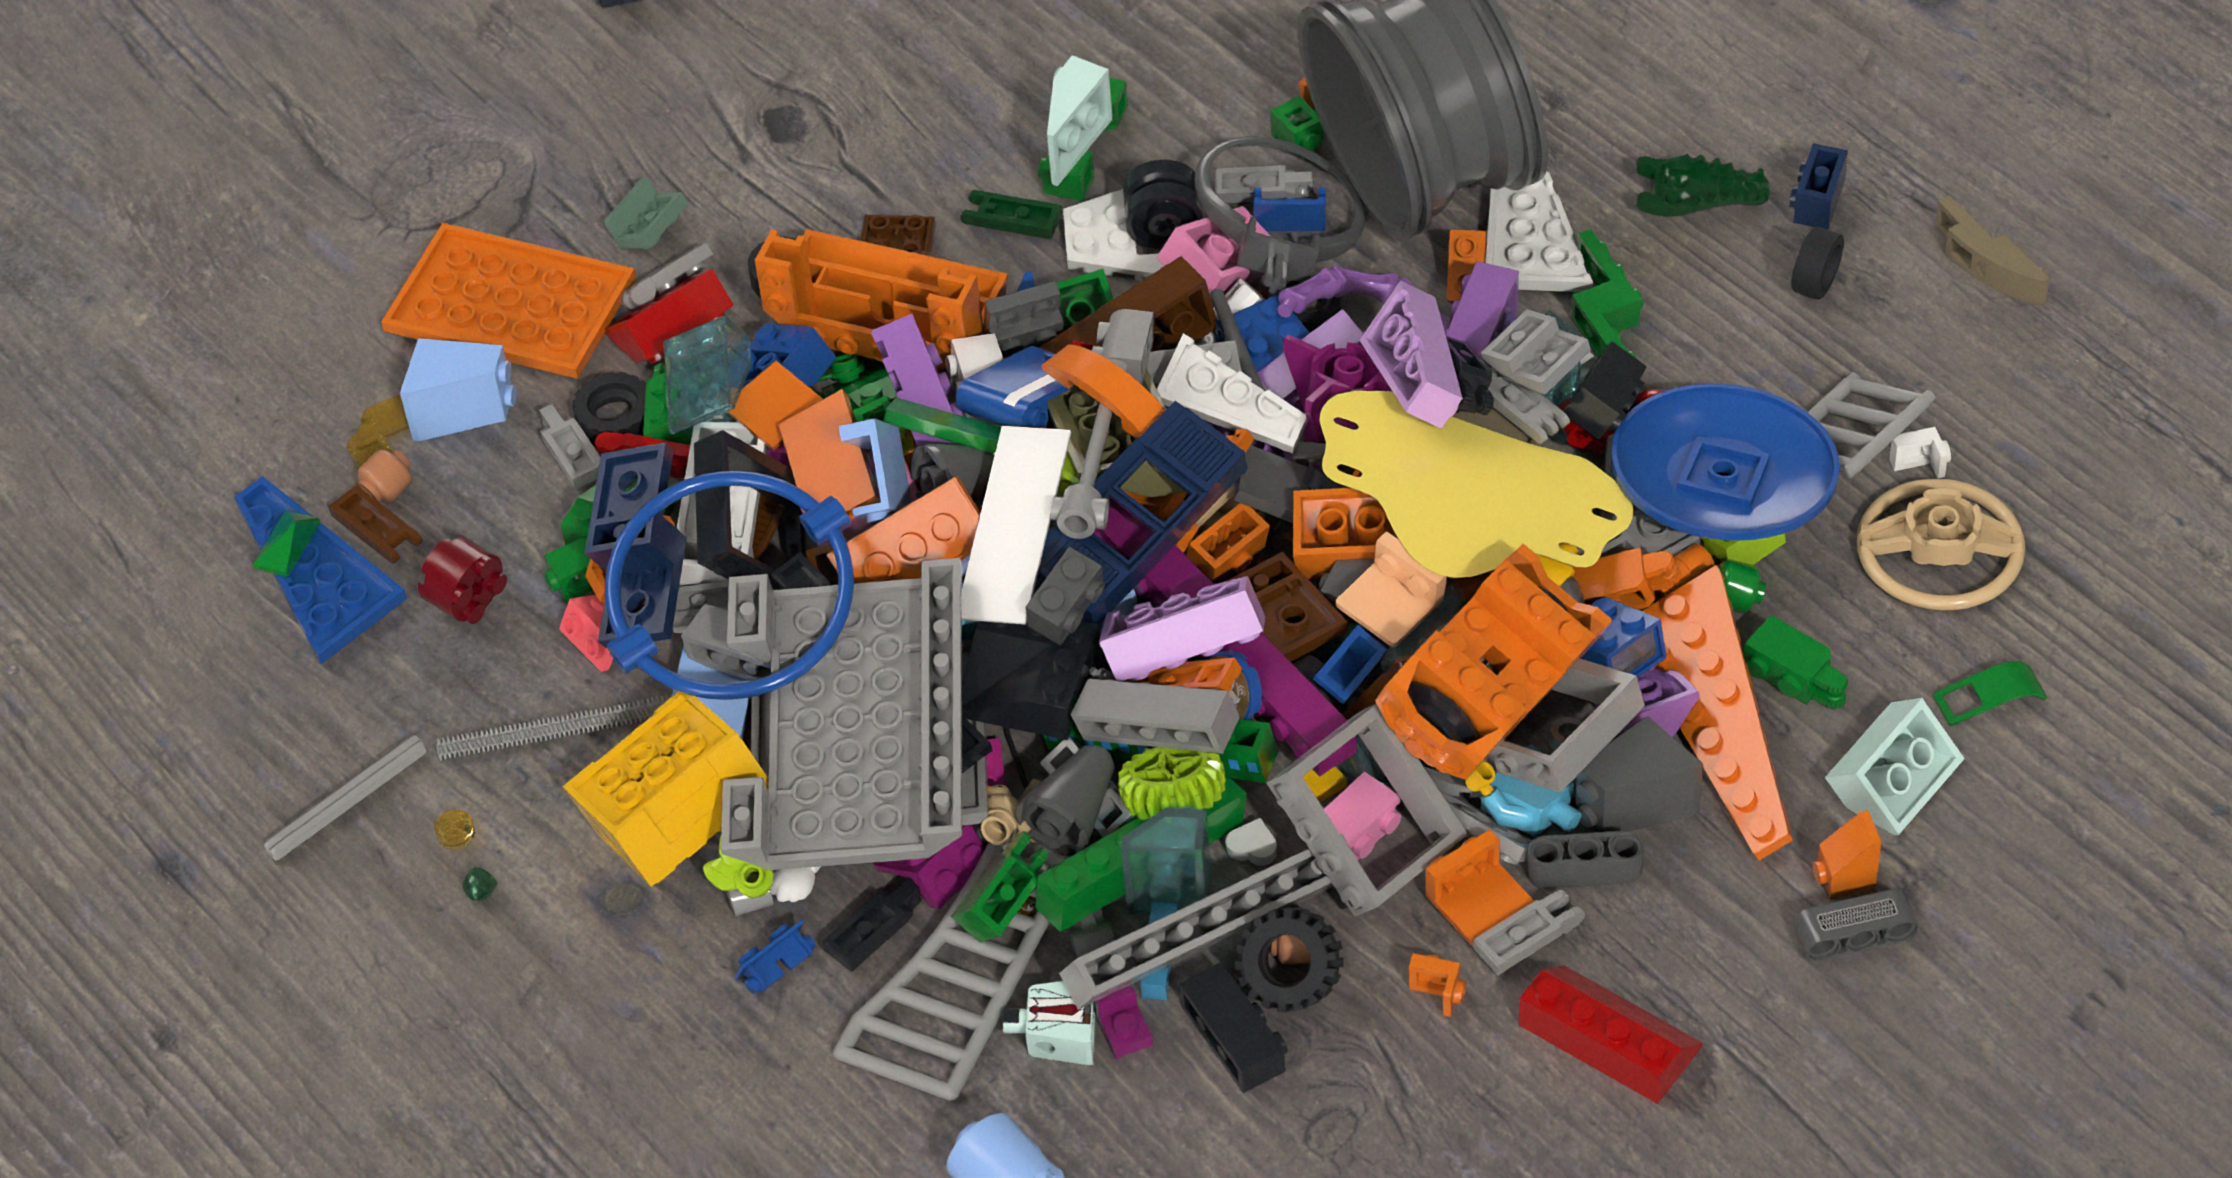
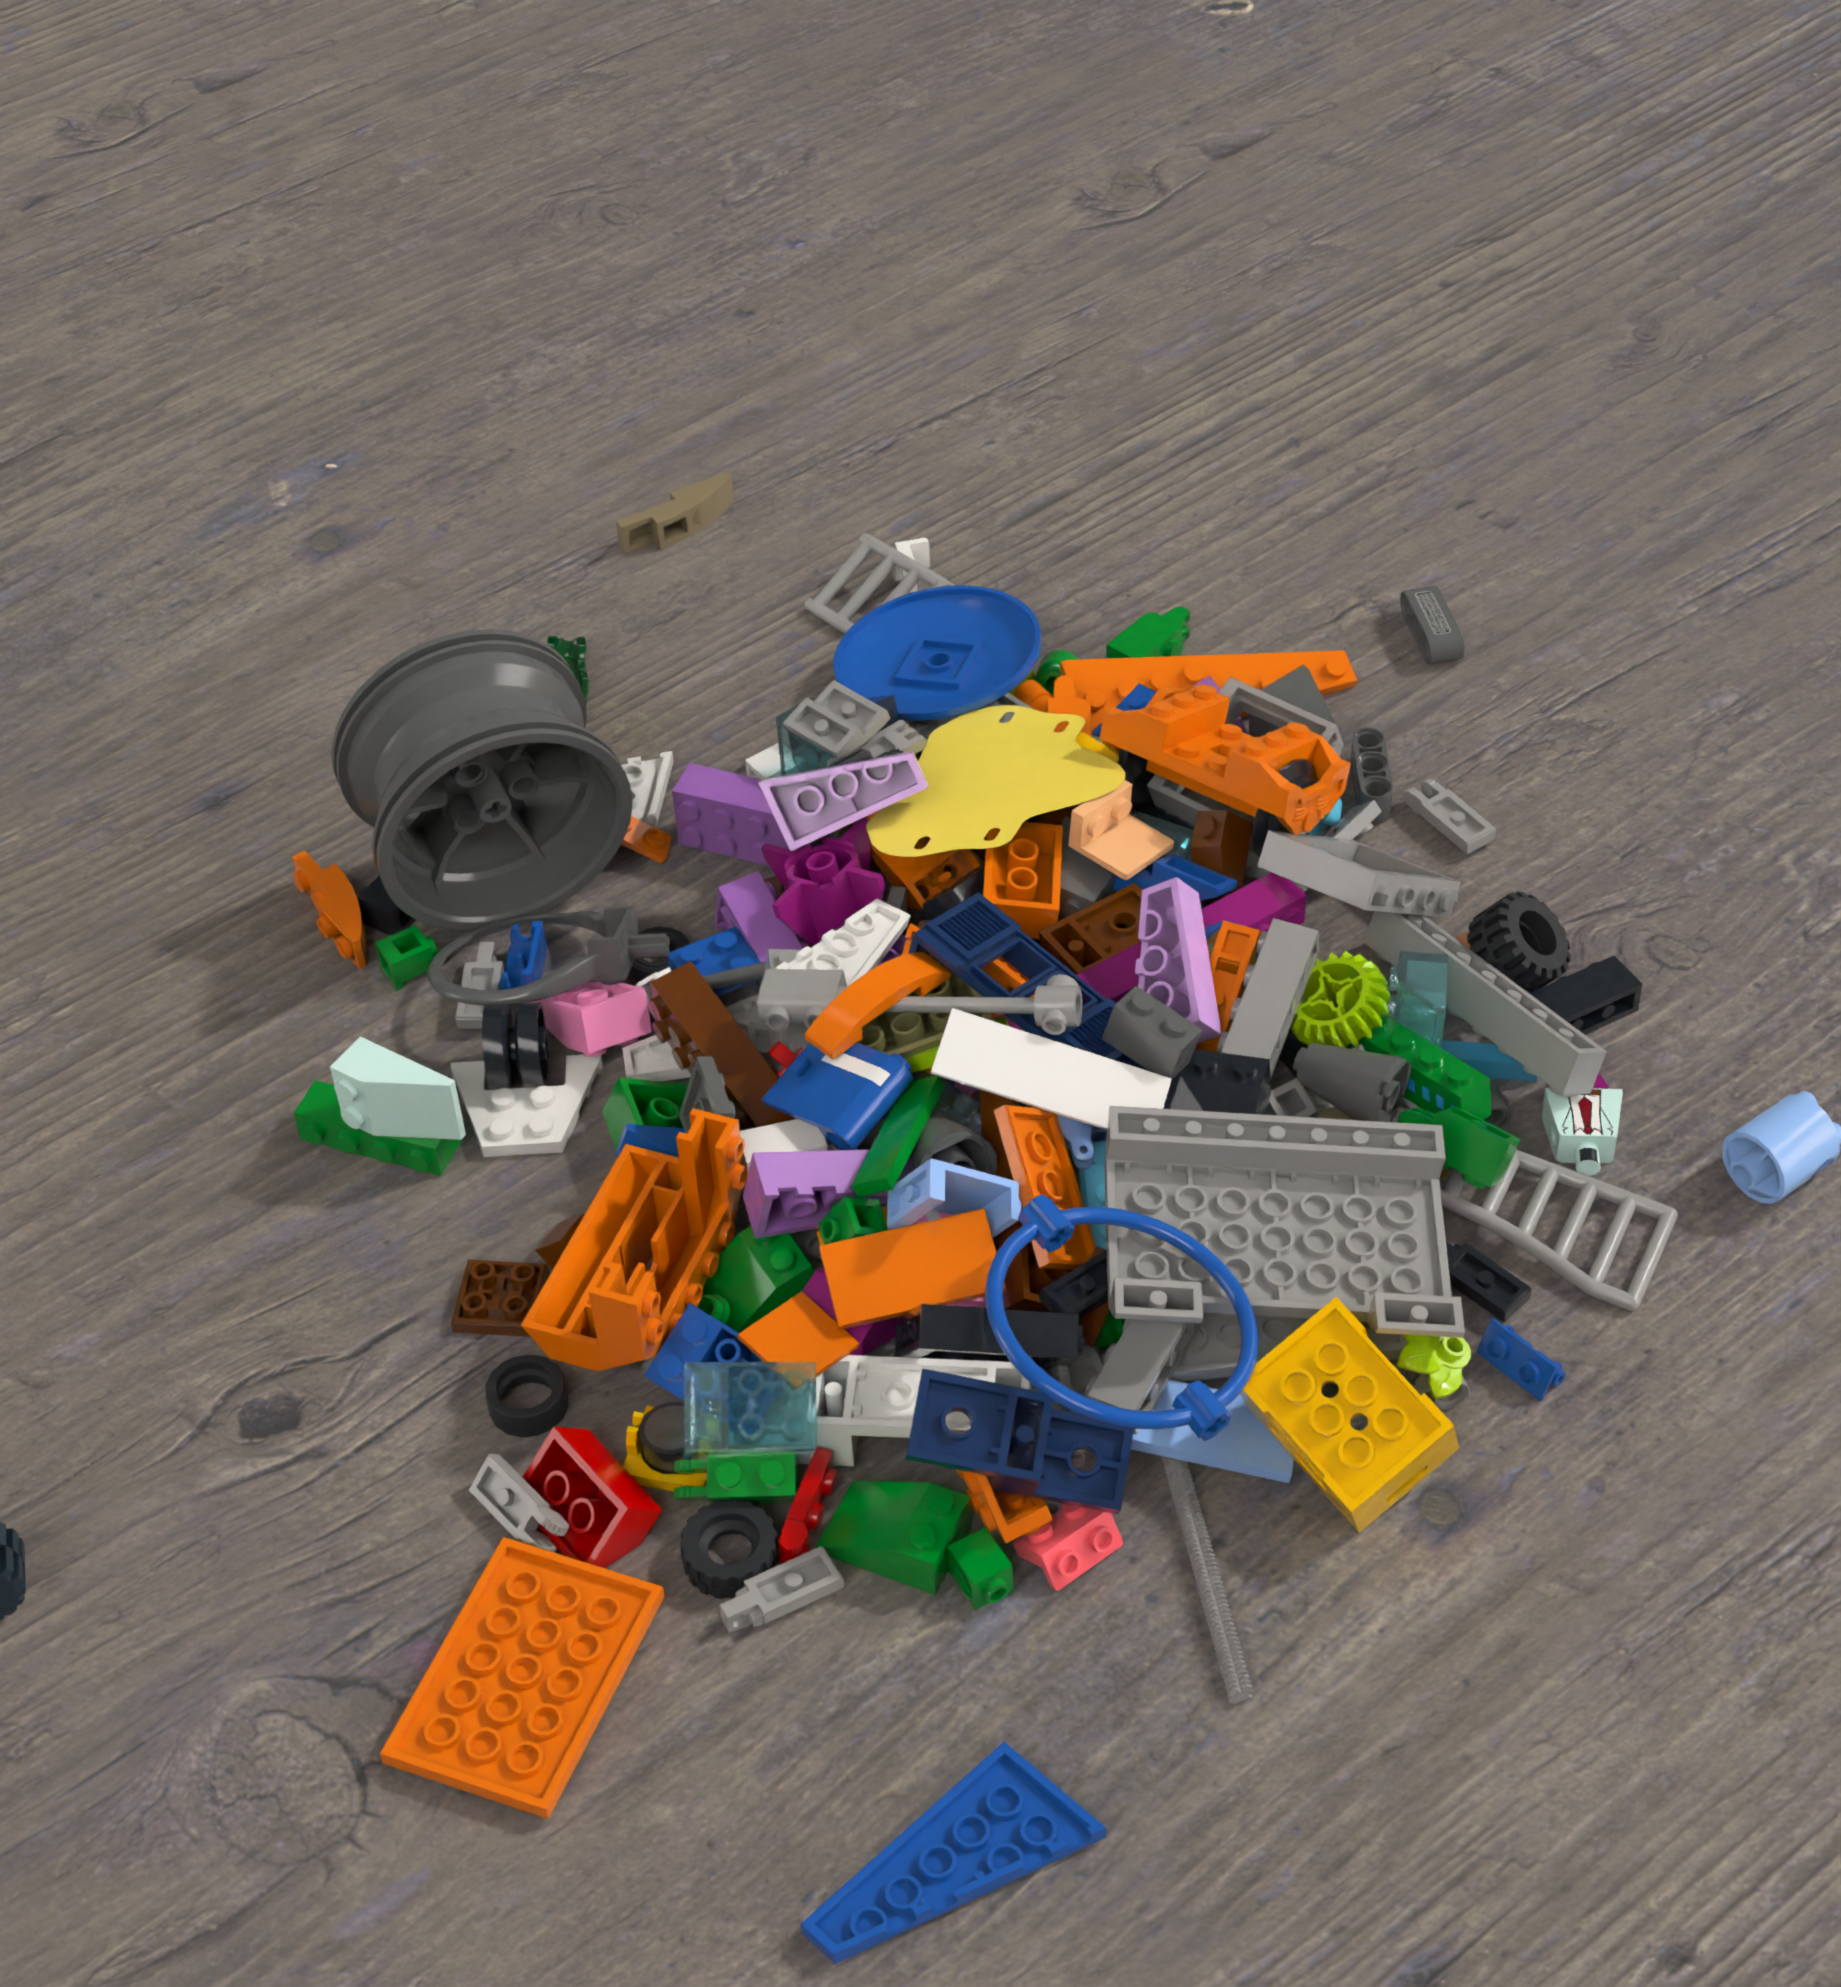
camera: 90 degrees left, 5 degrees down
(286, 543) = (924, 1872): green slope -> none
(344, 798) = (1317, 1788): light grey axle -> none
(373, 523) = (886, 1793): reddish brown hinge -> none
(377, 425) = (742, 1820): clear yellow tile -> none
(385, 475) = (812, 1784): nougat head -> none
(455, 829) = (1356, 1671): clear yellow tile -> none
(456, 387) = (685, 1704): light blue slope -> none
(461, 578) = (1005, 1667): dark red brick -> none
(479, 884) = (1443, 1634): clear green hinge -> none
(644, 216) = (416, 1529): sand green bracket -> none
(1013, 214) = (481, 1188): dark green hinge -> none
(1338, 283) = (655, 919): medium lavender animal -> none
(1364, 813) = (1339, 923): bright pink brick -> none
(1437, 977) = (1515, 861): orange bracket -> none
(1474, 887) = (1411, 838): orange bracket -> none
(1606, 1031) = (1555, 768): red slope -> none
(1610, 304) = (701, 740): green bracket -> none
(1817, 263) = (693, 591): black tyre -> none
(1819, 186) = (582, 599): dark blue brick -> none
(1849, 858) = (1371, 612): orange slope -> none
(1896, 765) = (1259, 596): light aqua slope -> none
(1940, 532) = (1010, 552): tan piece -> none
(1994, 688) = (1174, 538): green piece -> none

